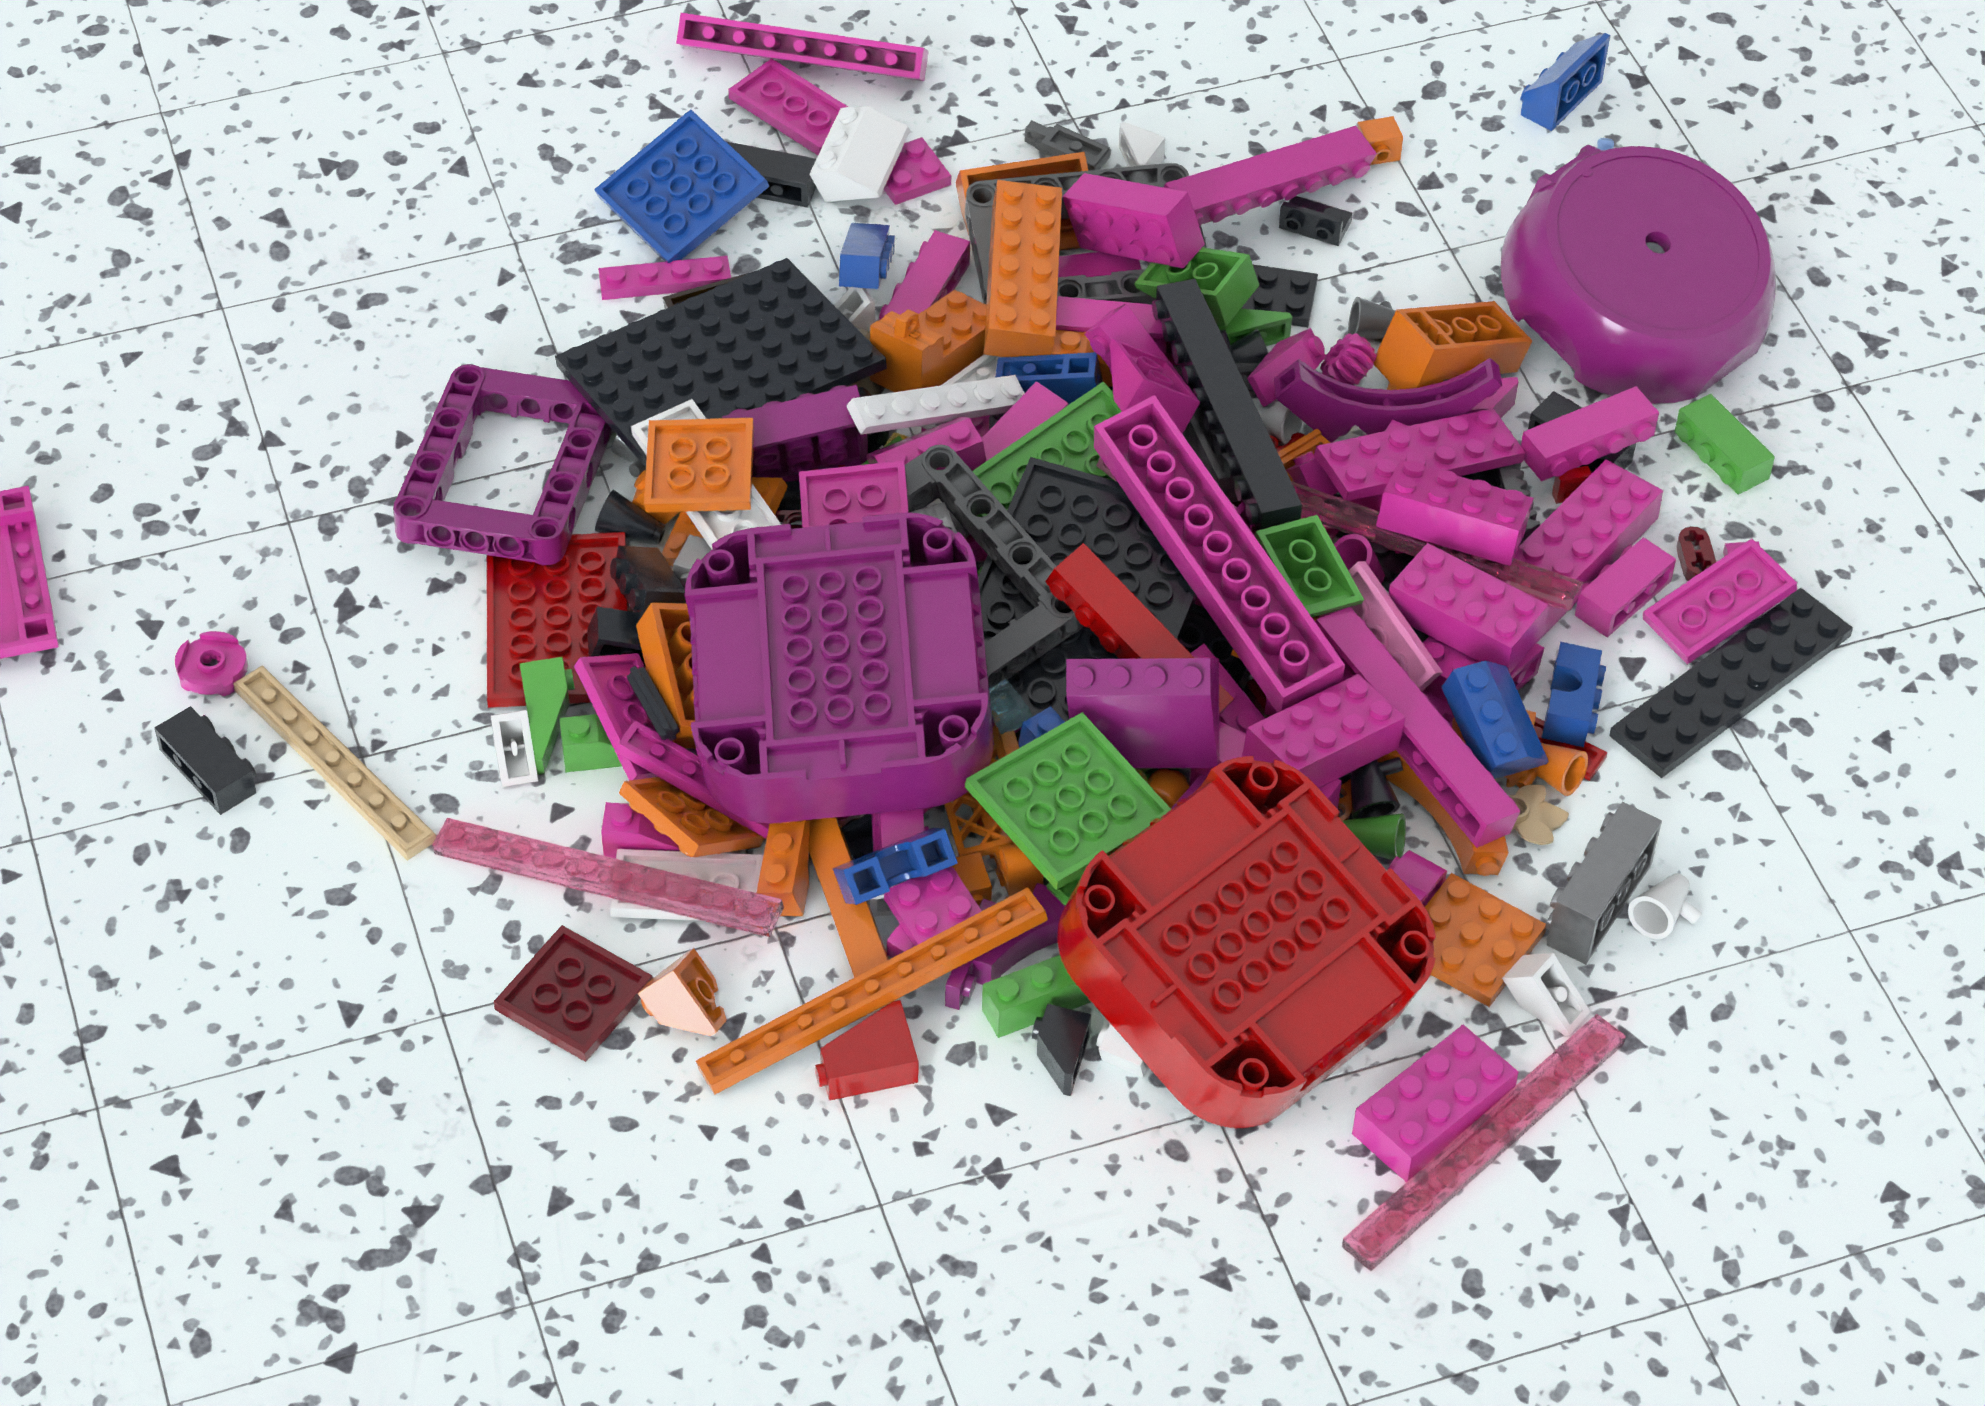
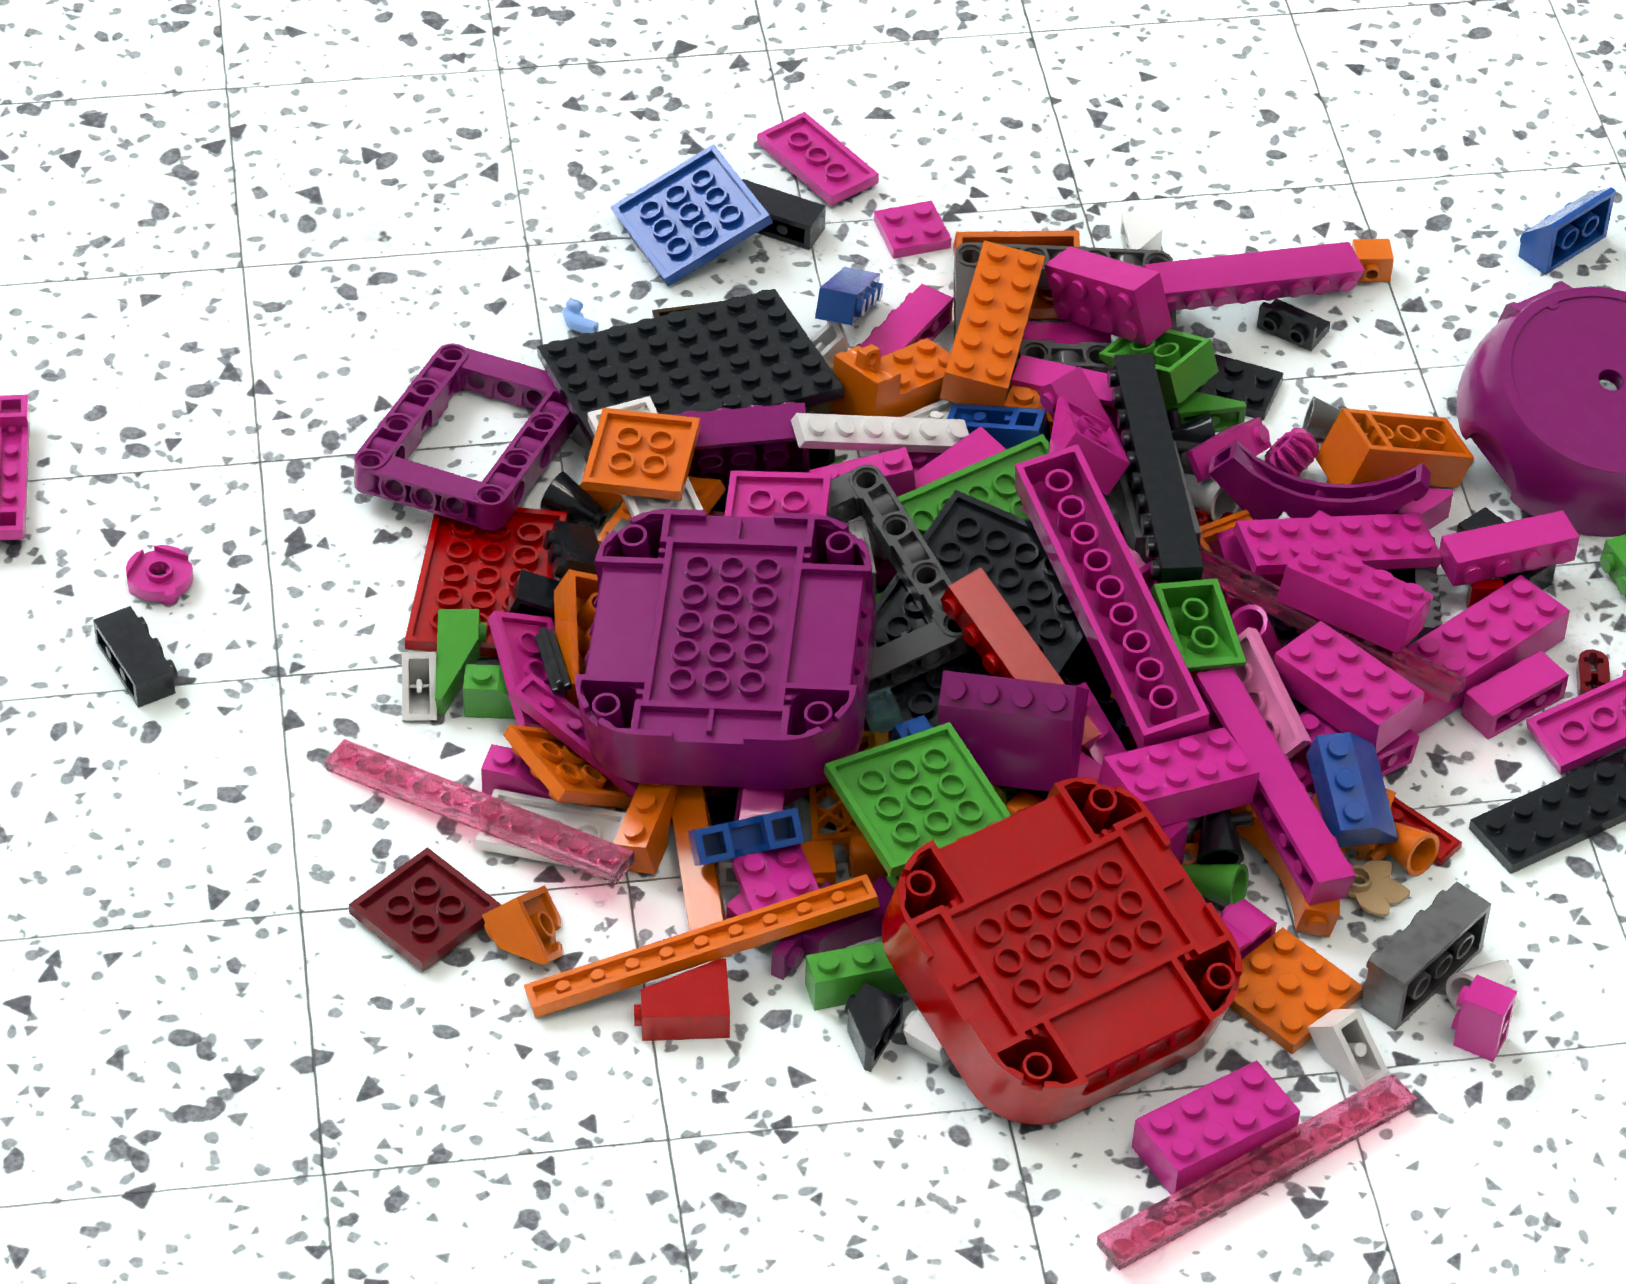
camera: 10 degrees right, 5 degrees down
(335, 762) = (253, 677): tan tile -> none
(585, 319) = (575, 319): none -> light blue arm
(661, 277) = (655, 293): dark pink plate -> none
(802, 46) = (836, 105): dark pink brick -> none
(858, 154) = (865, 206): white slope -> none
(1062, 141) = (1063, 218): dark grey hinge -> none
(1574, 694) = (1441, 782): blue arch -> none
(1674, 940) = (1483, 1017): none -> dark pink brick

